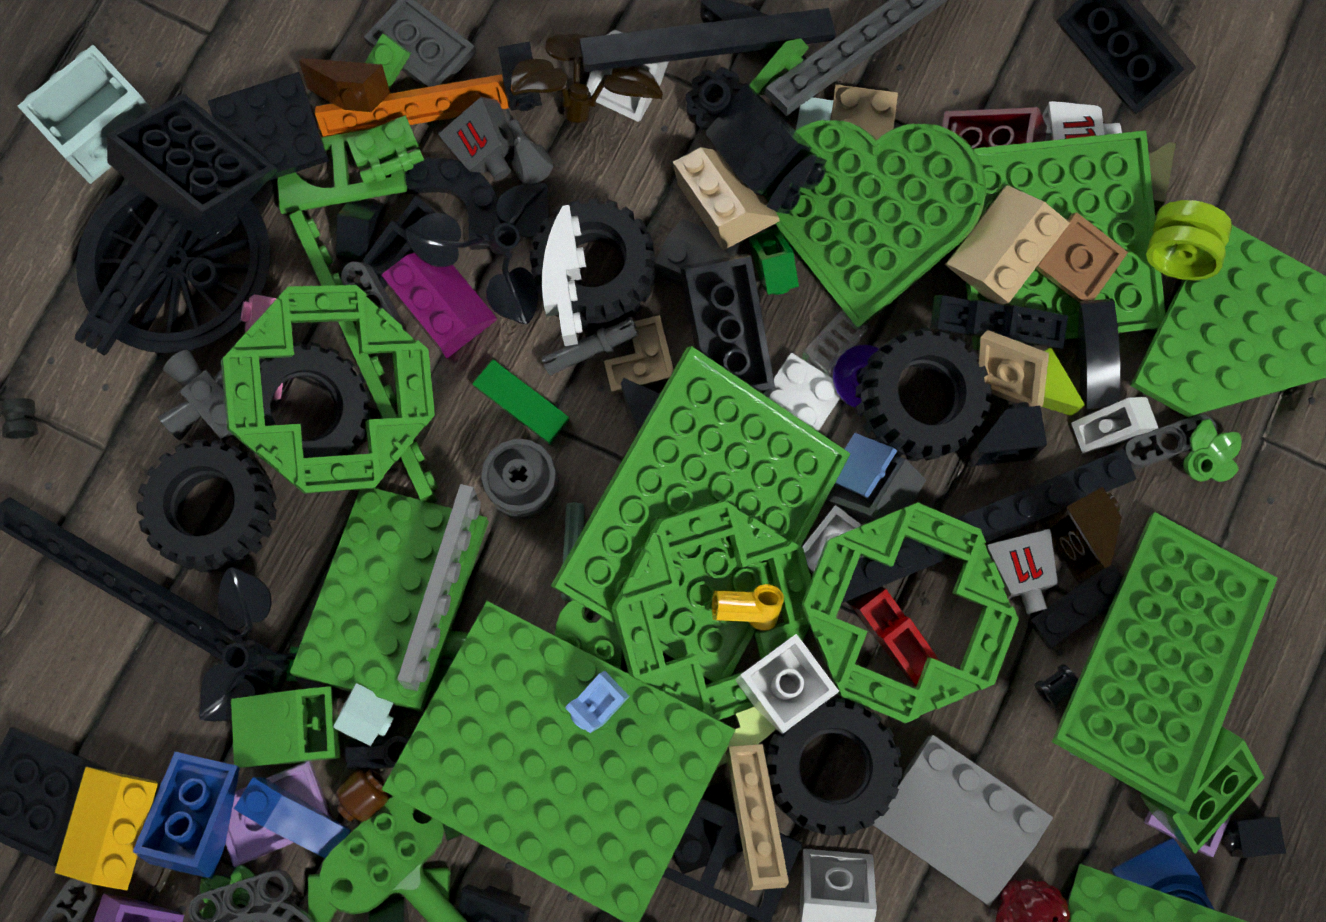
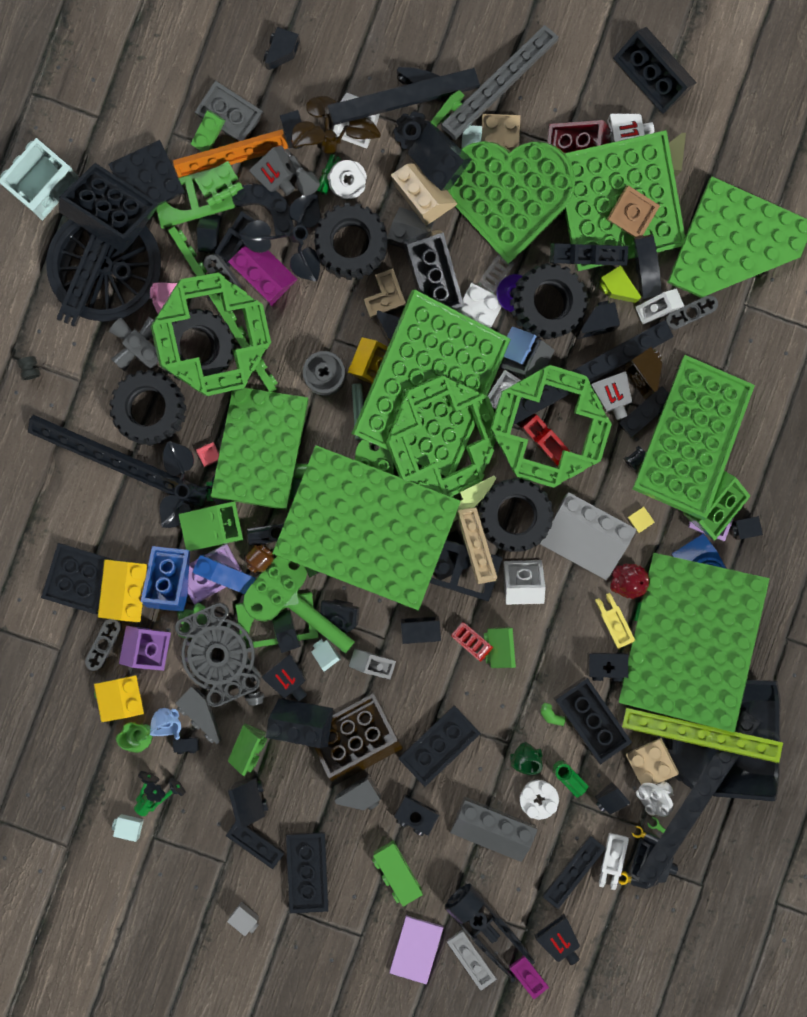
camera: 10 degrees left, 10 degrees up
(301, 598) = (208, 454): none -> coral tile
(346, 84) = (189, 144): reddish brown slope -> none
(364, 715) = (255, 515): light aqua brick -> none
(436, 598) = (288, 447): light grey plate -> none
(521, 401) = (318, 327): green tile -> none
(560, 271) = (333, 248): white slope -> none
(570, 154) = (324, 179): none -> green pin
(581, 163) = (347, 168): none -> white plate
(596, 462) = (367, 359): none -> yellow slope
(597, 703) = (384, 494): light blue bracket -> none
(601, 341) = (354, 291): dark grey pin -> none
(757, 607) = (467, 432): yellow piece -> none
(774, 261) = (456, 228): green slope -> none
(787, 684) = (486, 473): white slope -> none
(805, 175) = (469, 178): black slope -> none
(1007, 244) = (589, 209): tan slope -> none
(1014, 369) = (598, 282): tan plate -> none
(1059, 799) = (640, 519): none -> light yellow tile
(1189, 240) = (694, 195): lime wheel -> none
(1215, 451) = (717, 315): bright green plate -> none

